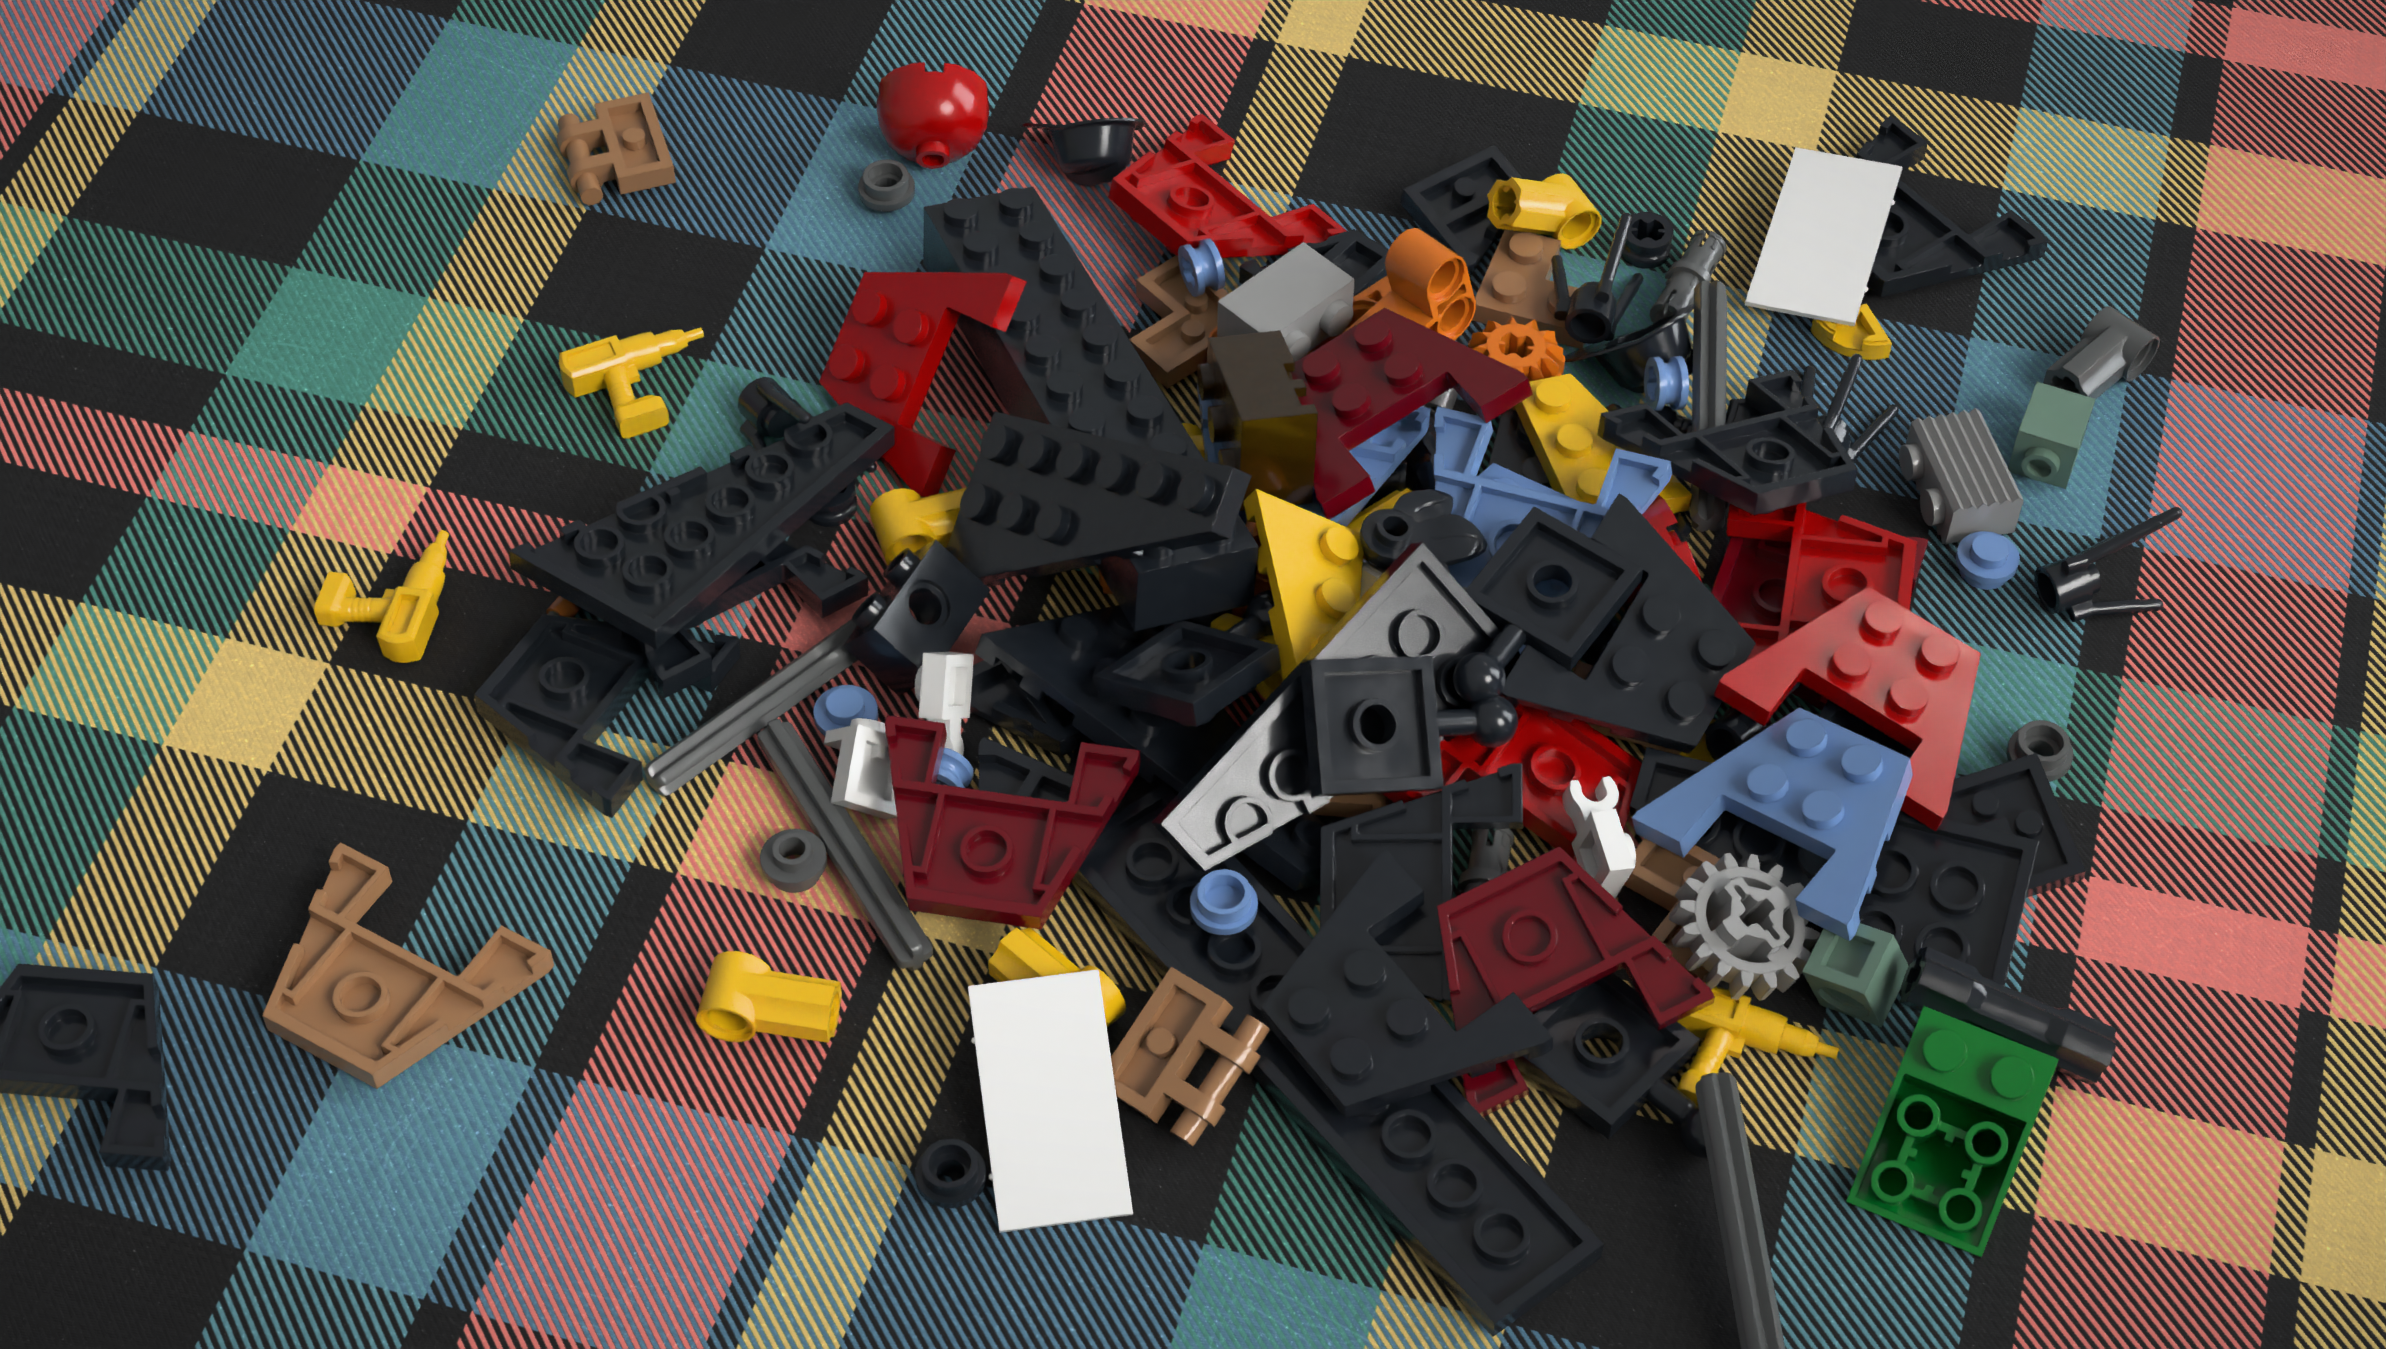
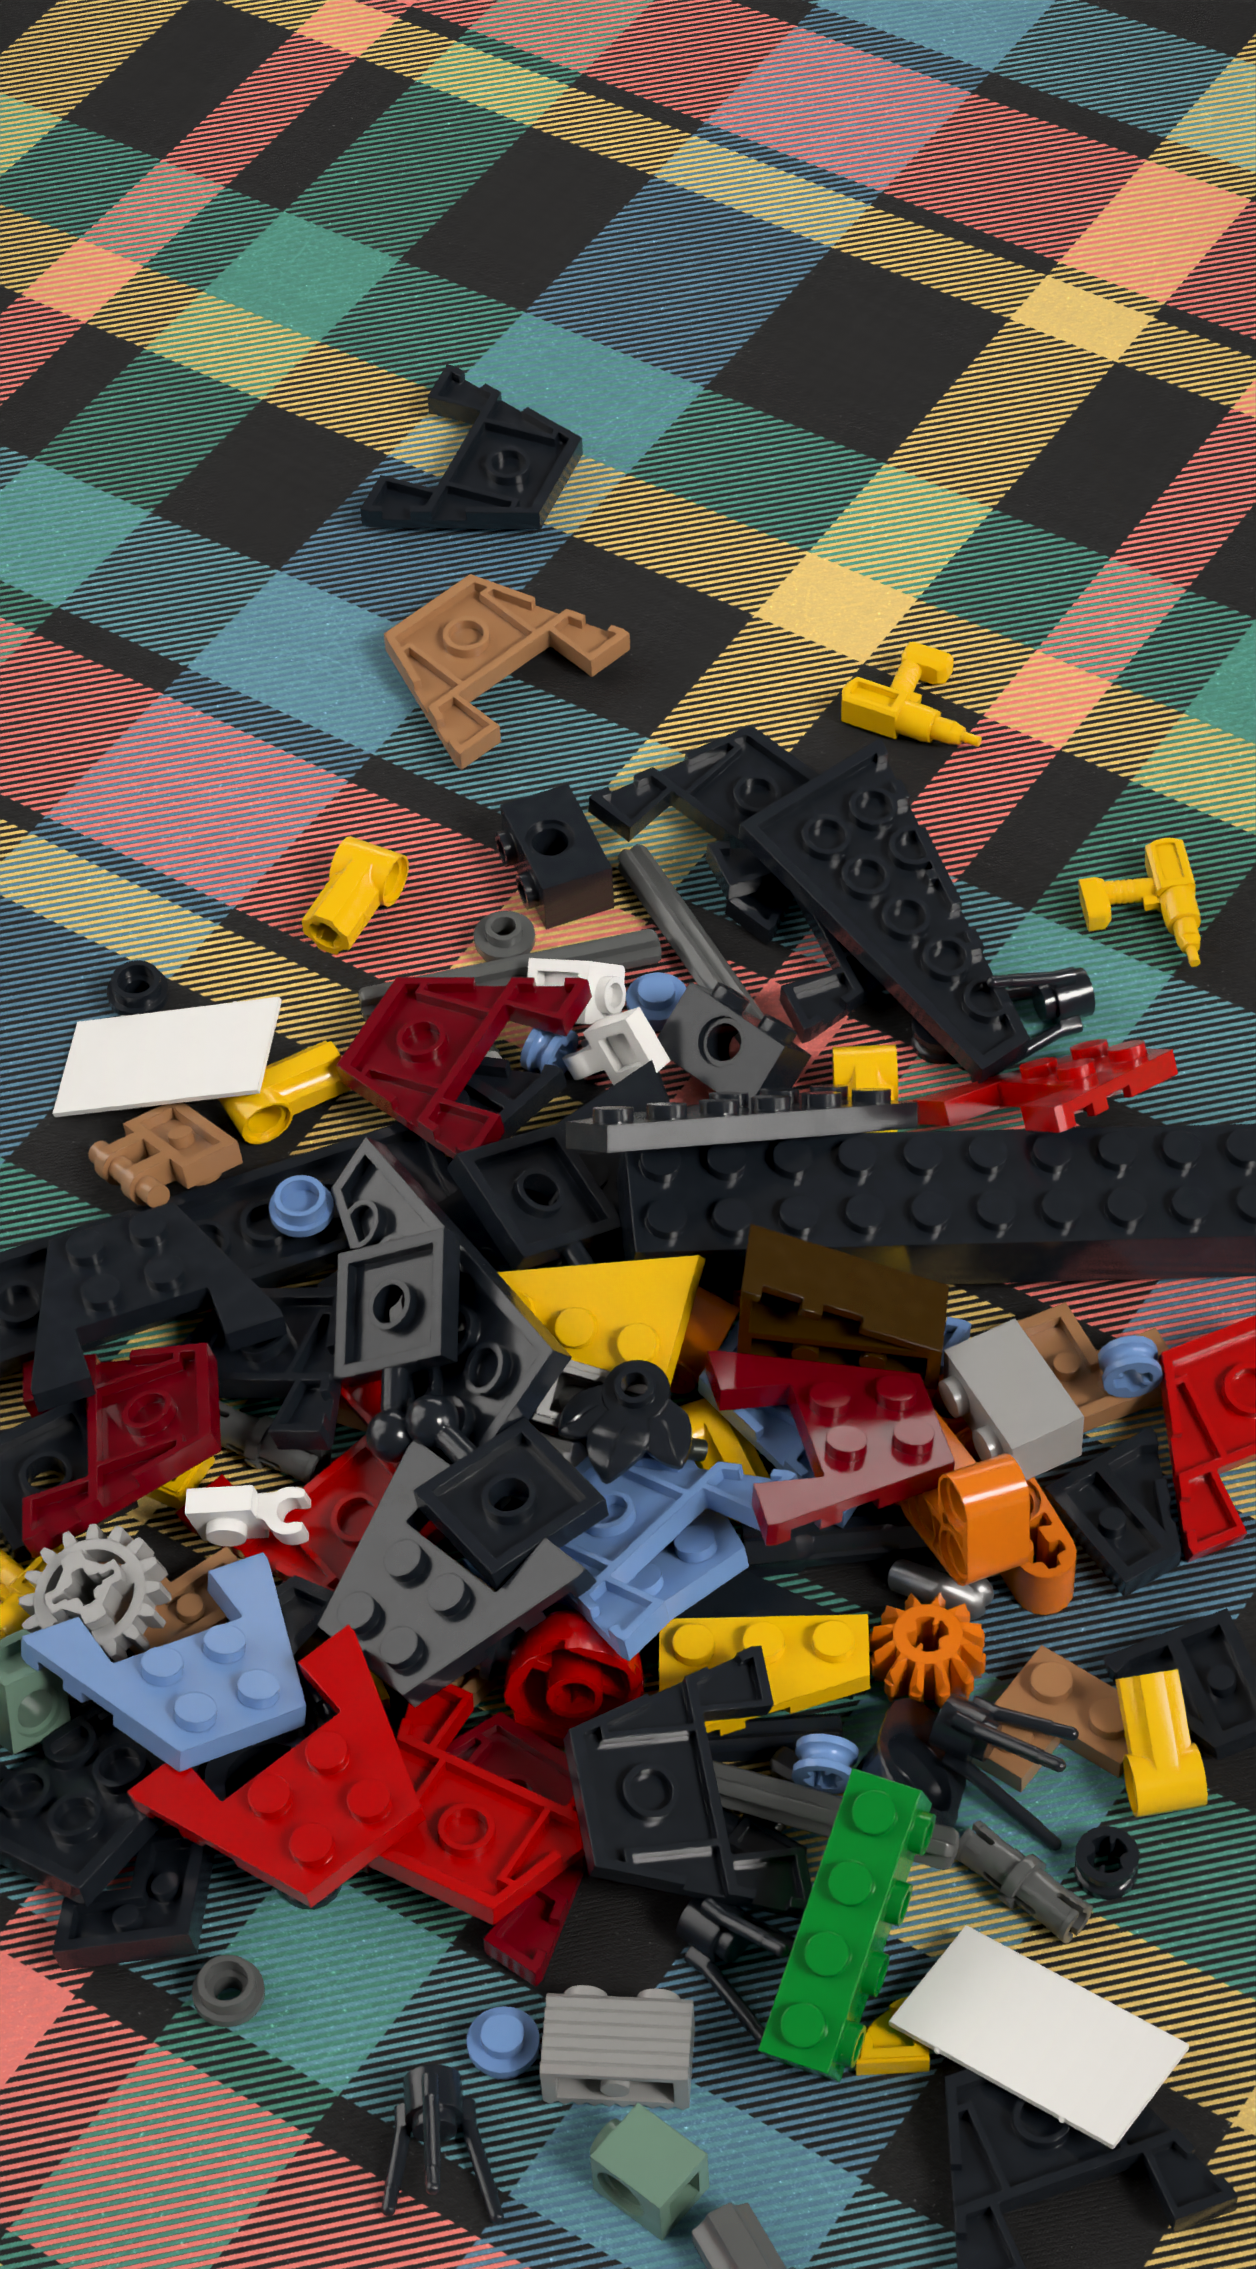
camera: 110 degrees right, 0 degrees up
(645, 832) = (555, 857): none -> black brick
(1815, 325) = (847, 1925): none -> green brick

